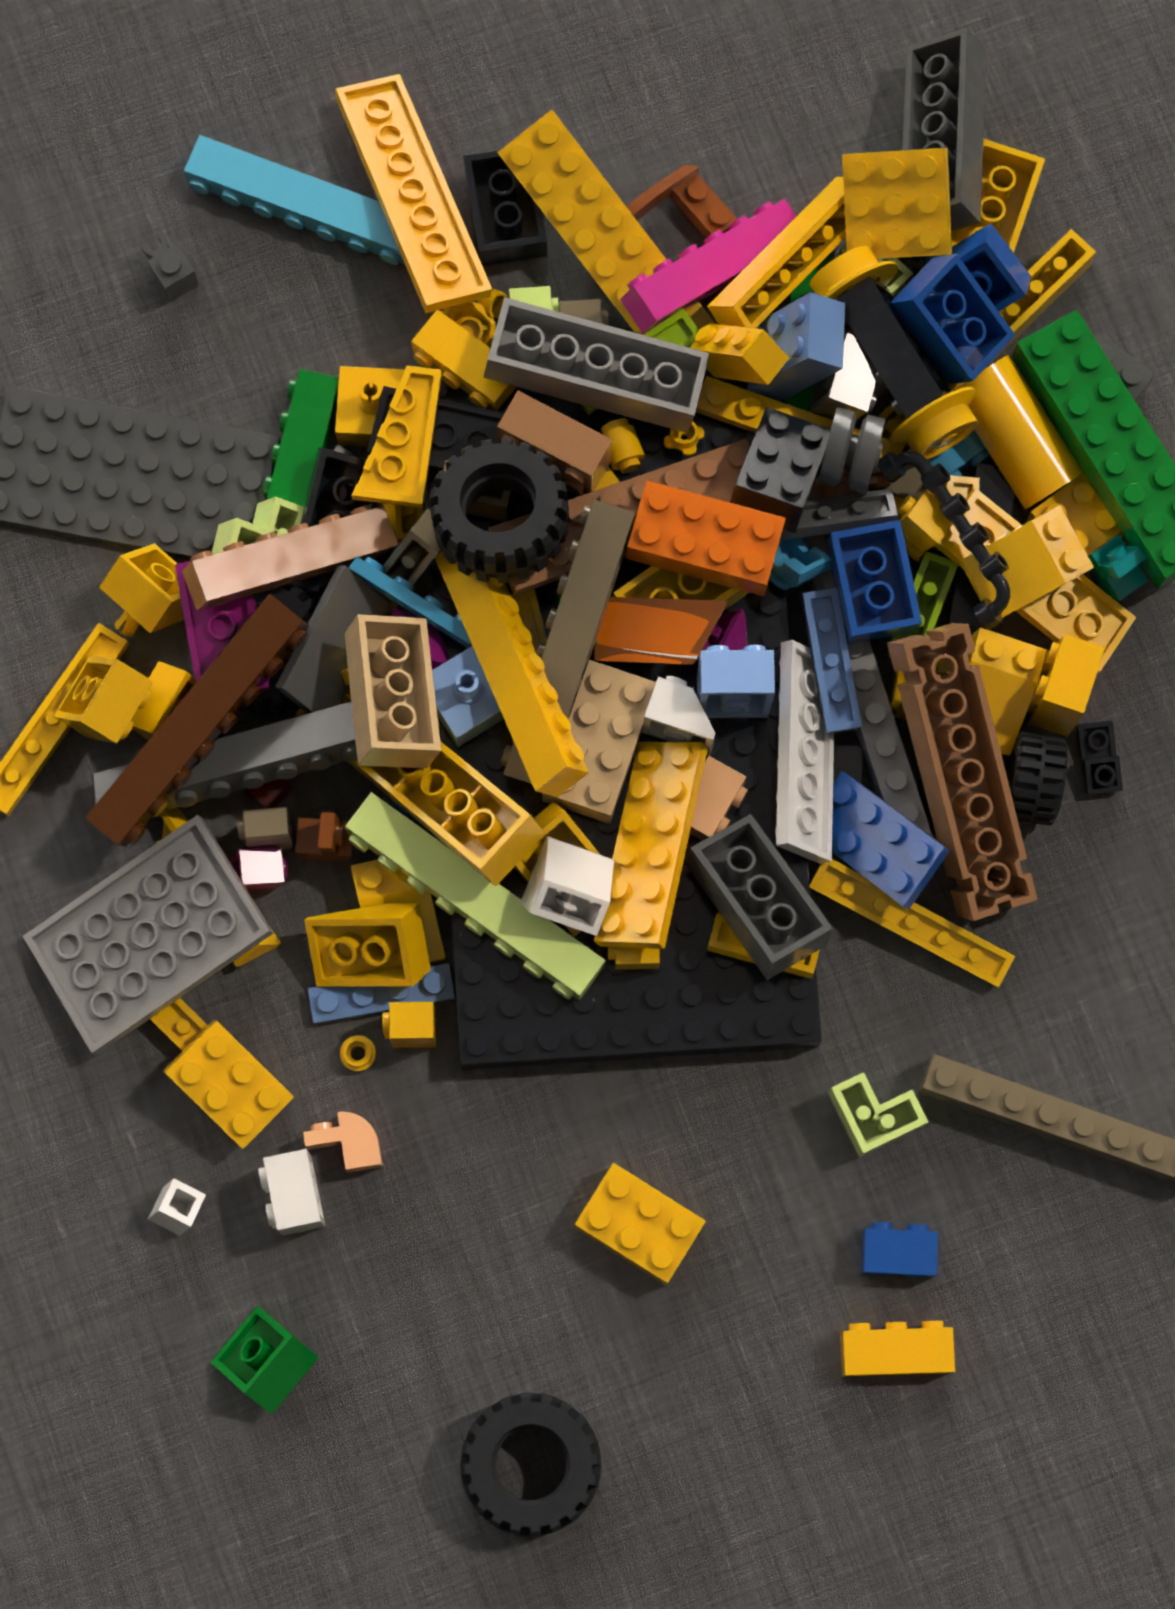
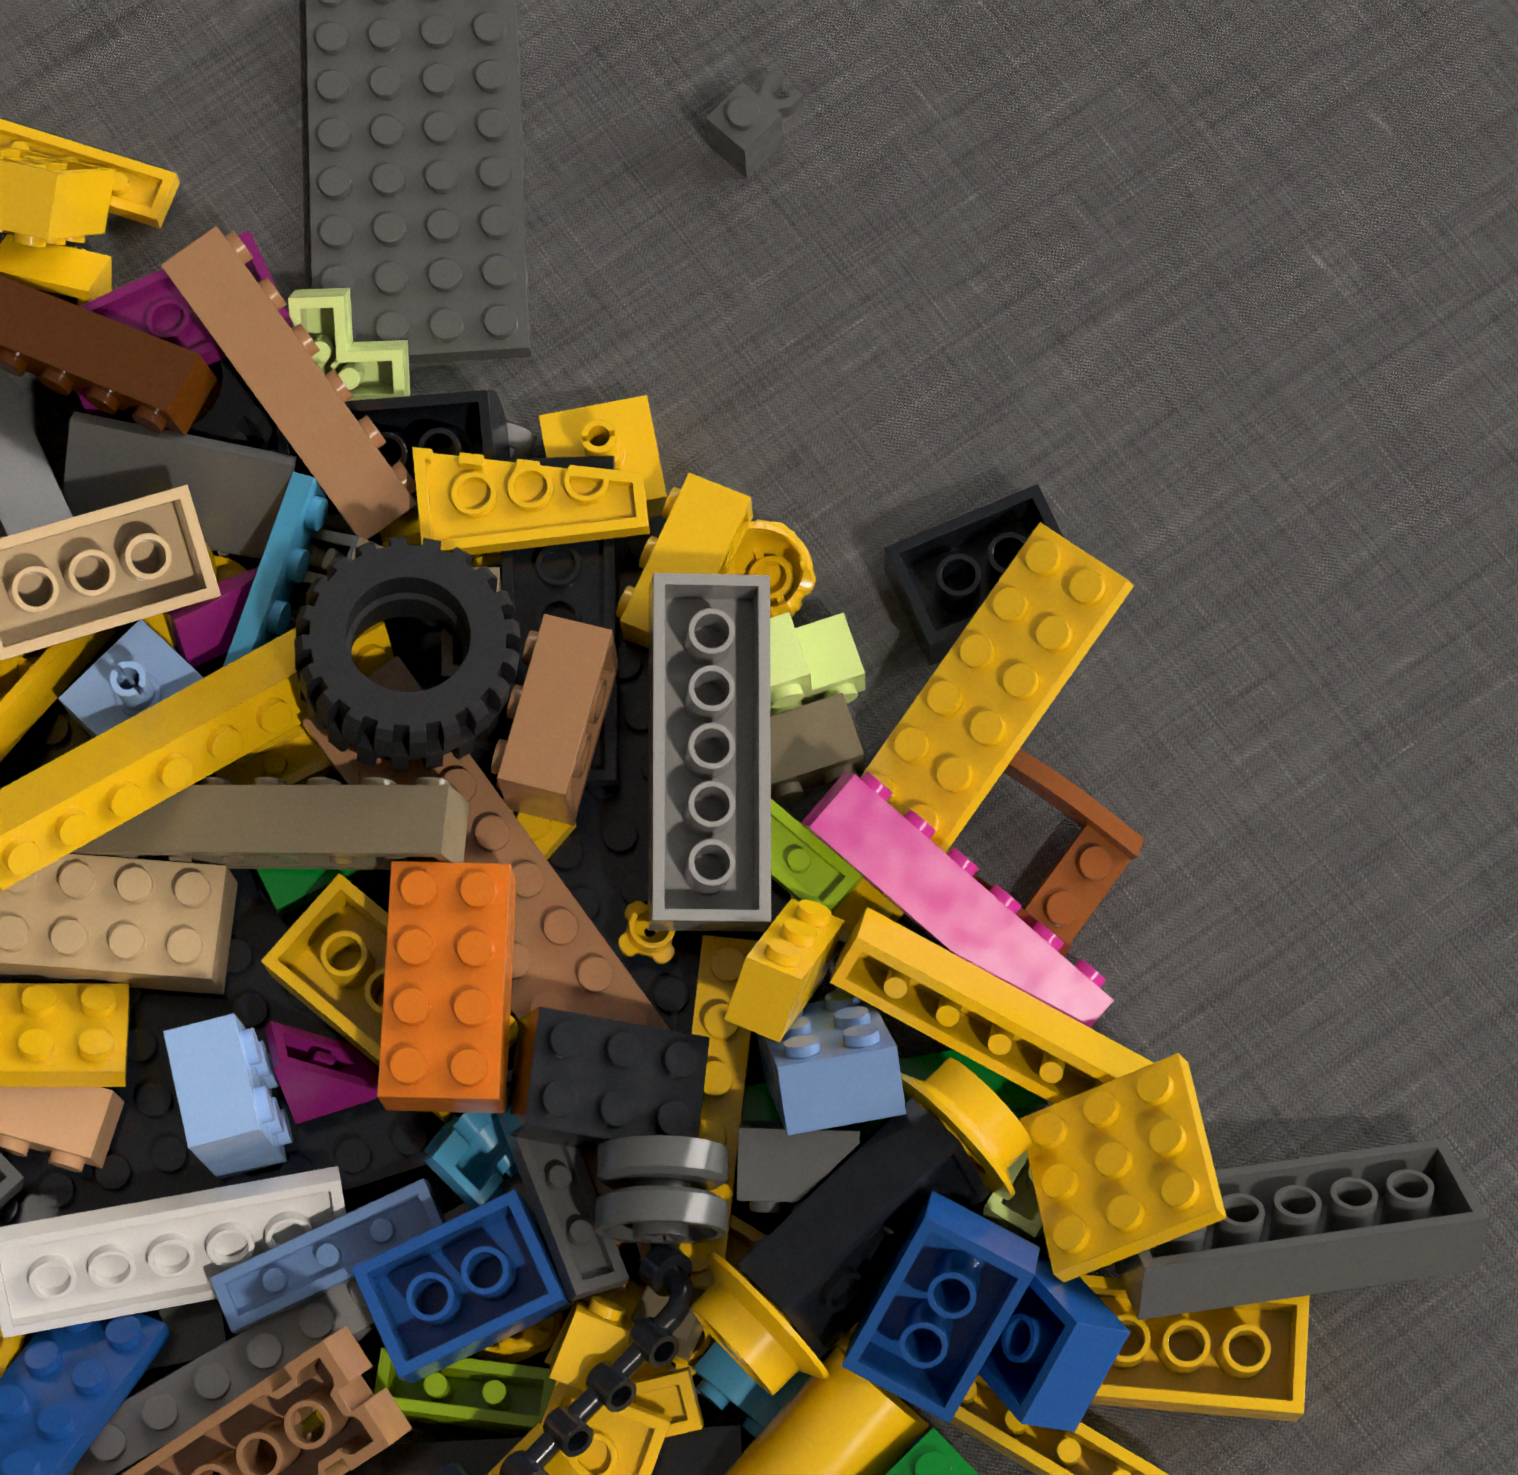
camera: 85 degrees right, 5 degrees down
(146, 590) = (238, 195): yellow brick -> none
(292, 197) = (910, 311): medium azure brick -> none
(304, 431) = (531, 376): green brick -> none
(413, 193) = (954, 428): yellow plate -> none
(496, 297) = (815, 599): yellow hinge -> none
(625, 445) = (606, 838): yellow brick -> none
(656, 629) = (289, 952): orange sticker -> none
(677, 714) = (156, 1002): white slope -> none

